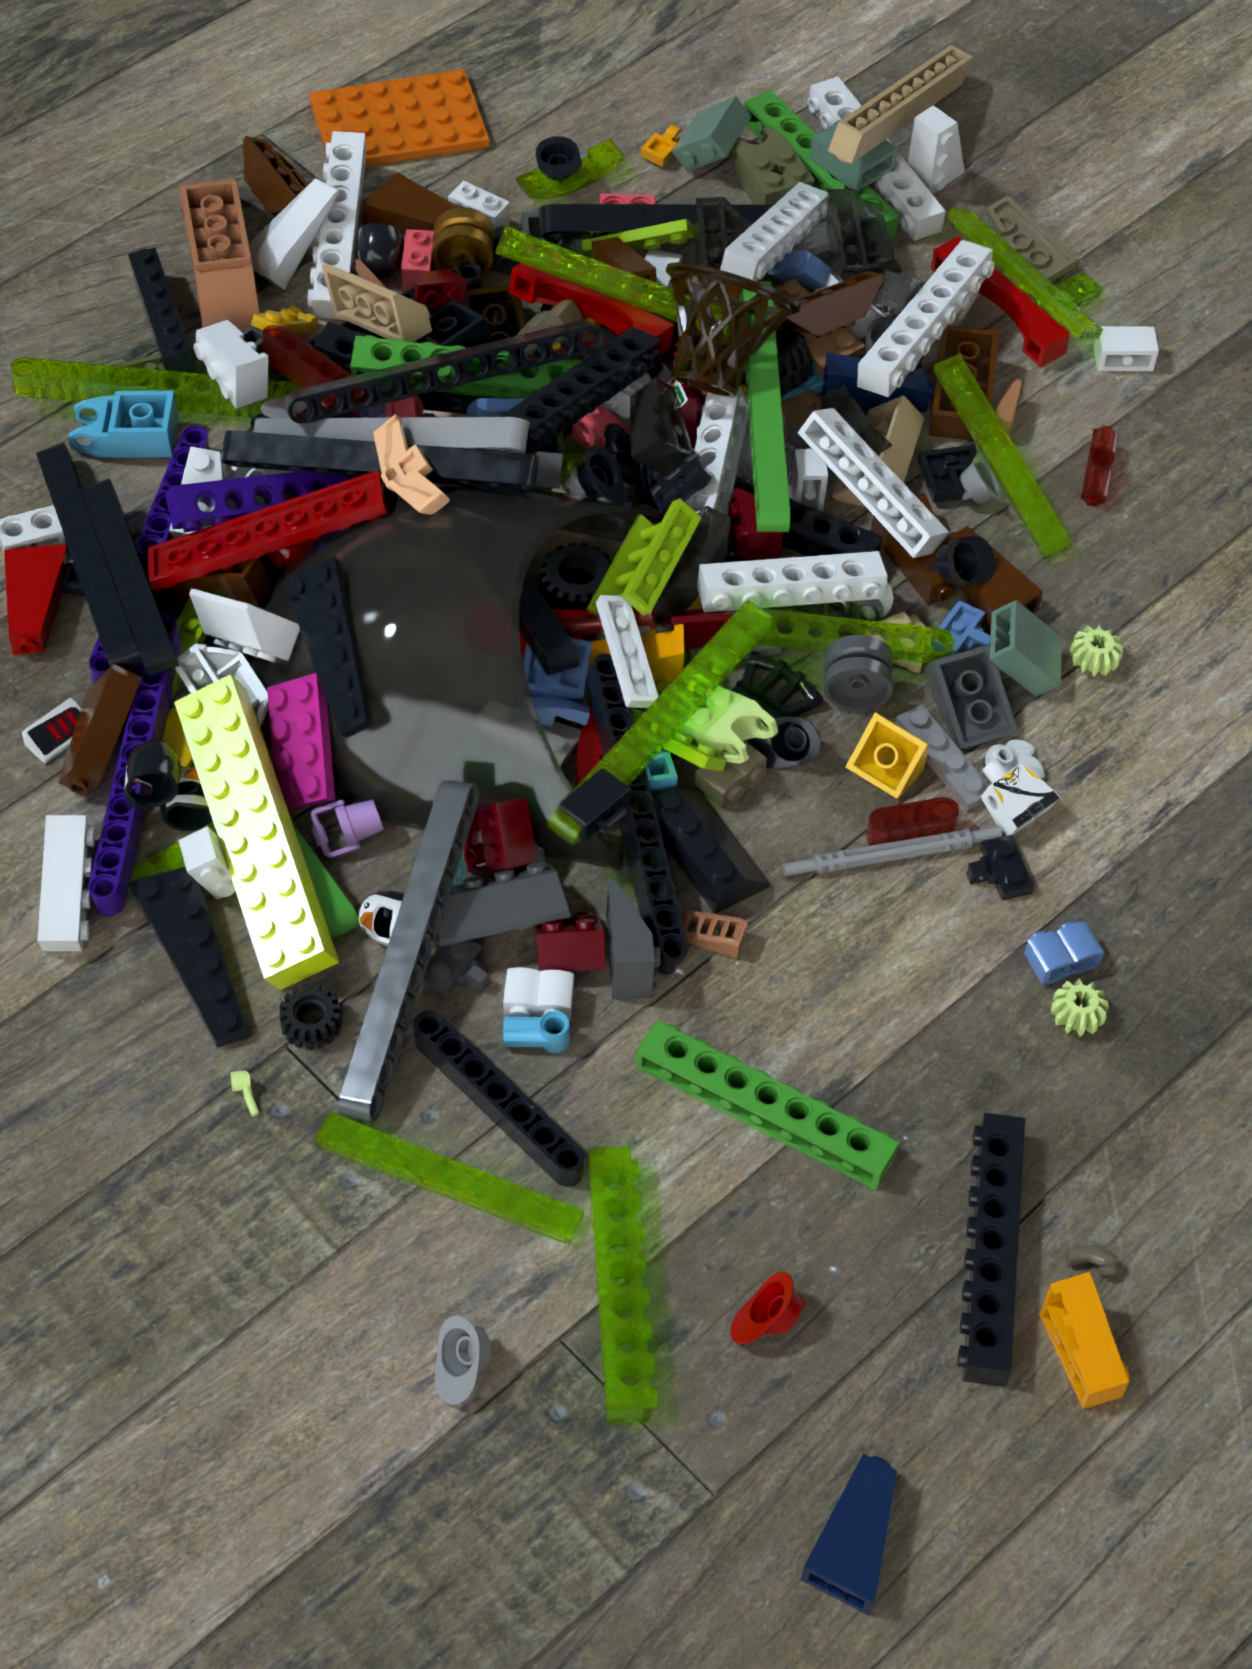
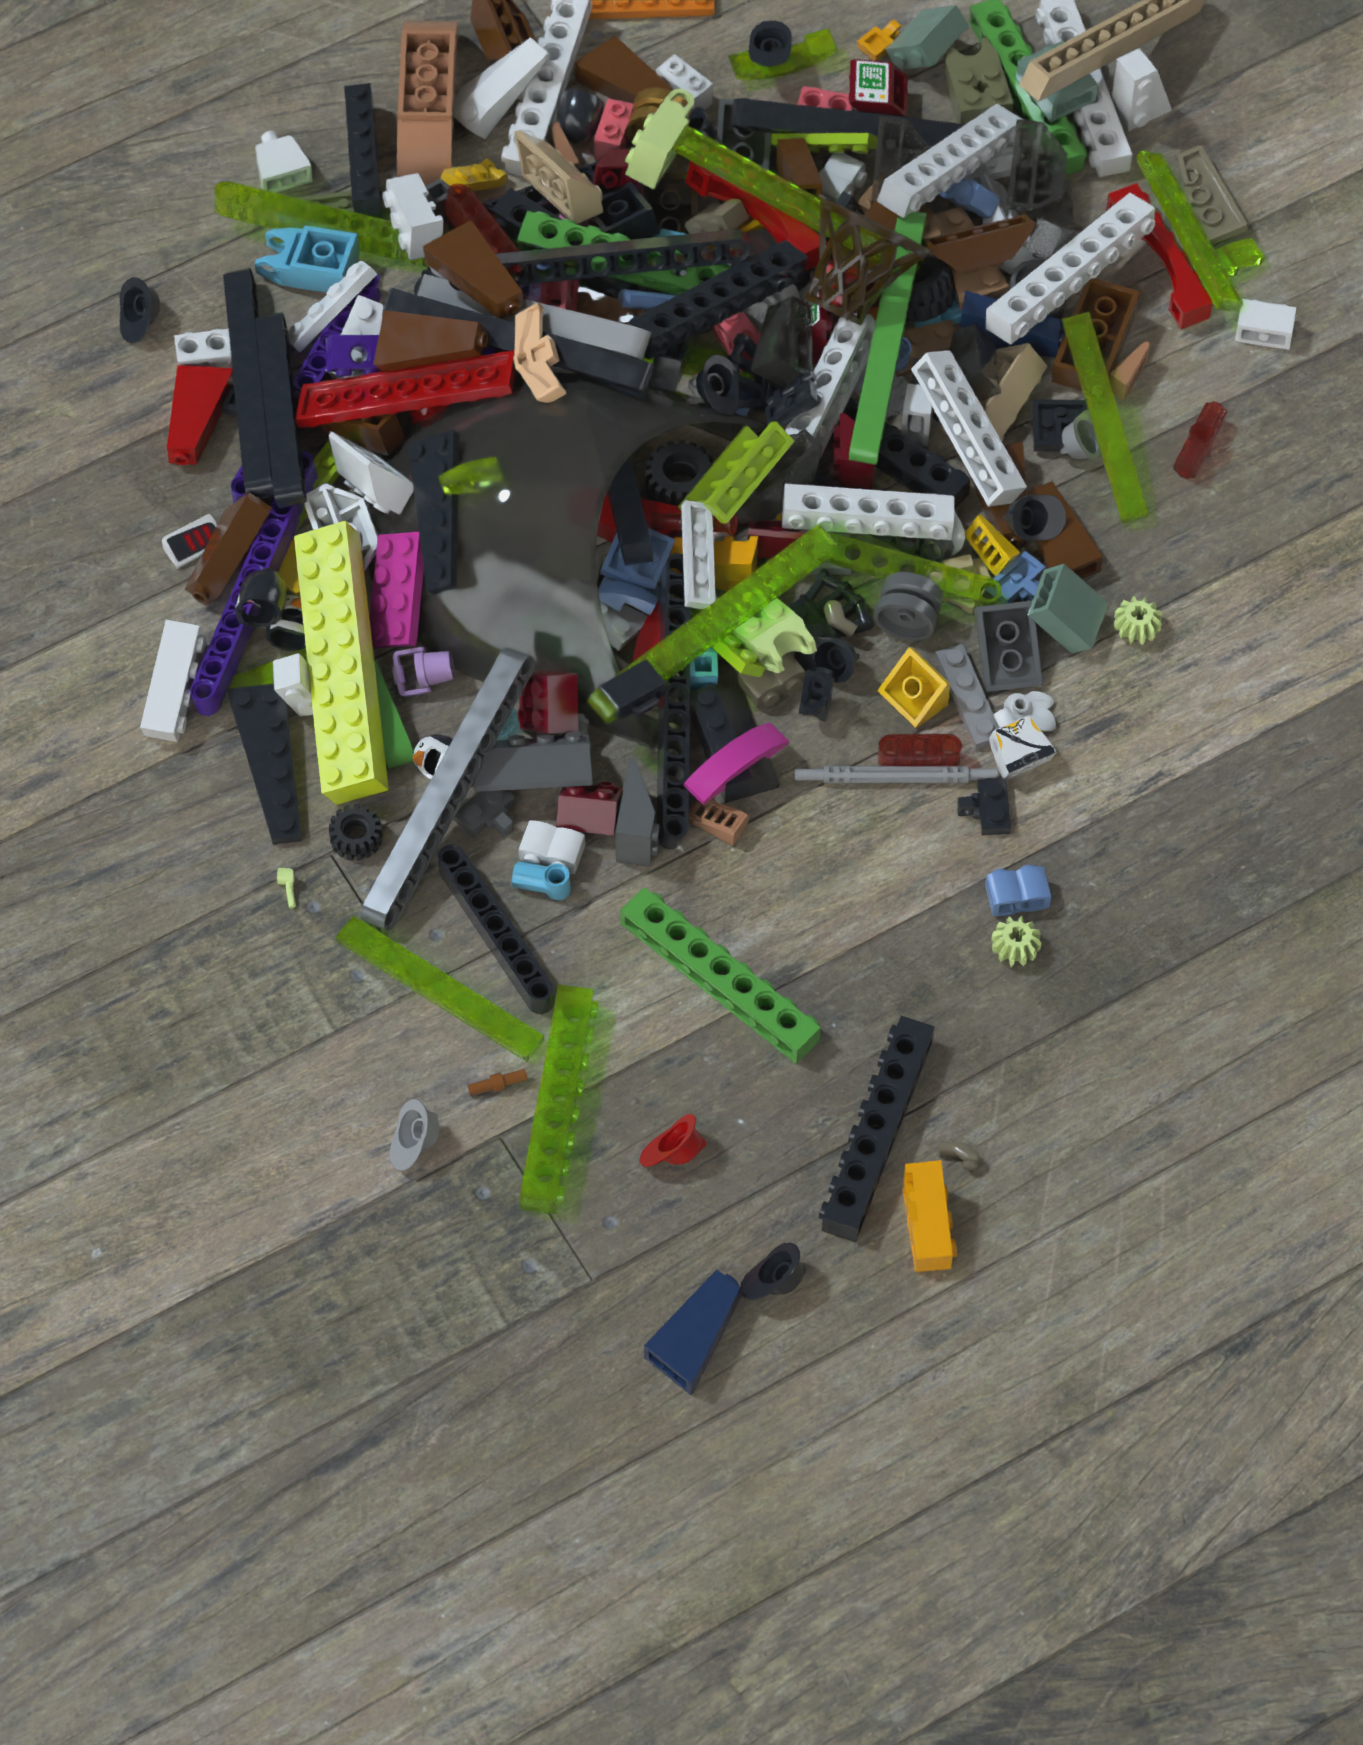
camera: 15 degrees right, 5 degrees up
(76, 337) = (281, 163): none -> white torso
(156, 471) = (336, 299): none -> white plate
(277, 474) = (422, 340): none -> reddish brown slope
(318, 394) = (475, 269): none -> reddish brown slope
(355, 604) = (462, 477): none -> clear neon green slope
(476, 249) = (654, 144): none -> yellowish green brick
(543, 1276) = (497, 1082): none -> dark orange bar
(674, 181) = (878, 88): none -> slope
(719, 864) = (733, 759): none -> dark pink slope
(783, 698) = (836, 618): none -> dark tan arm
(787, 778) = (817, 693): none -> black hips
(929, 1444) = (775, 1275): none -> black piece
(935, 595) = (1001, 544): none -> yellow slope

